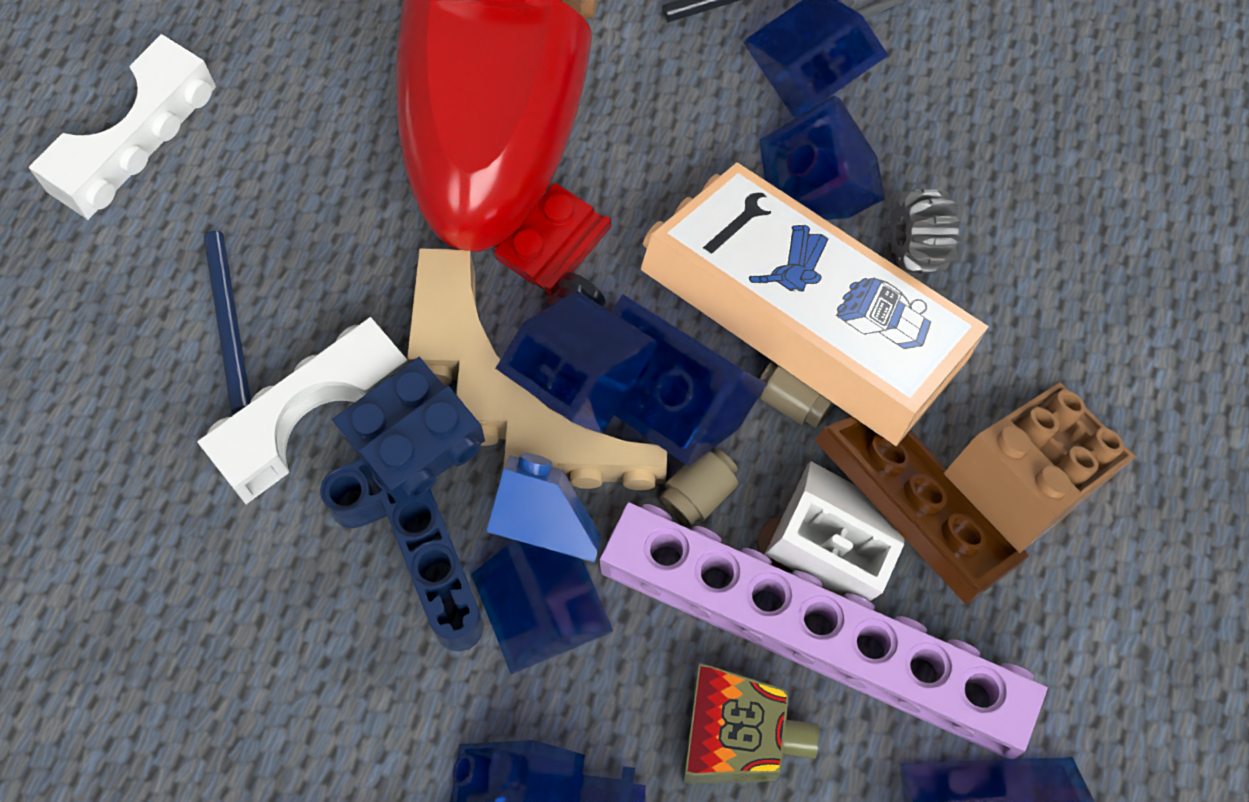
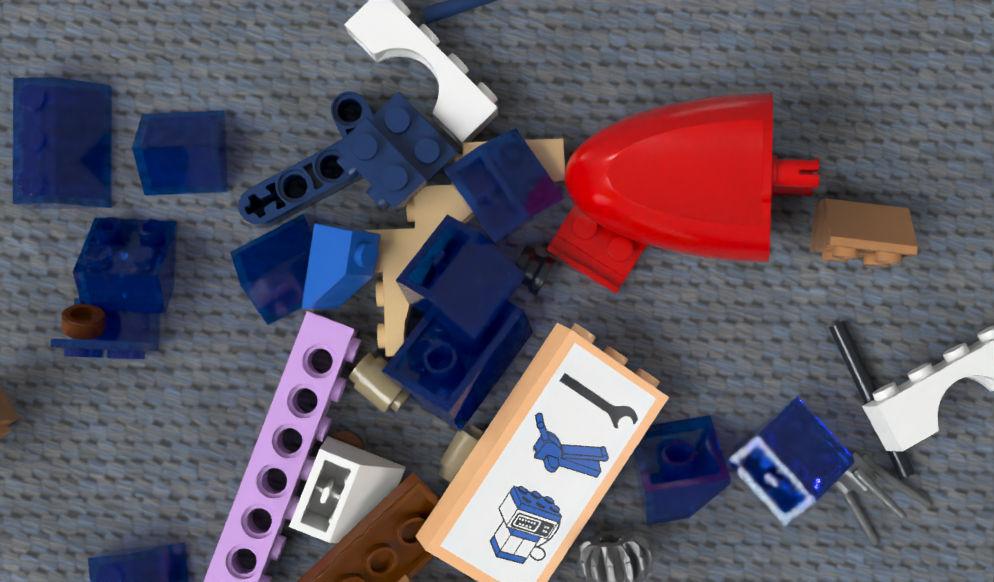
camera: 85 degrees right, 20 degrees up
(367, 724) = (182, 153): none -> clear blue slope
(471, 306) = (503, 185): none -> clear blue slope
(742, 730) = (193, 425): torso -> none

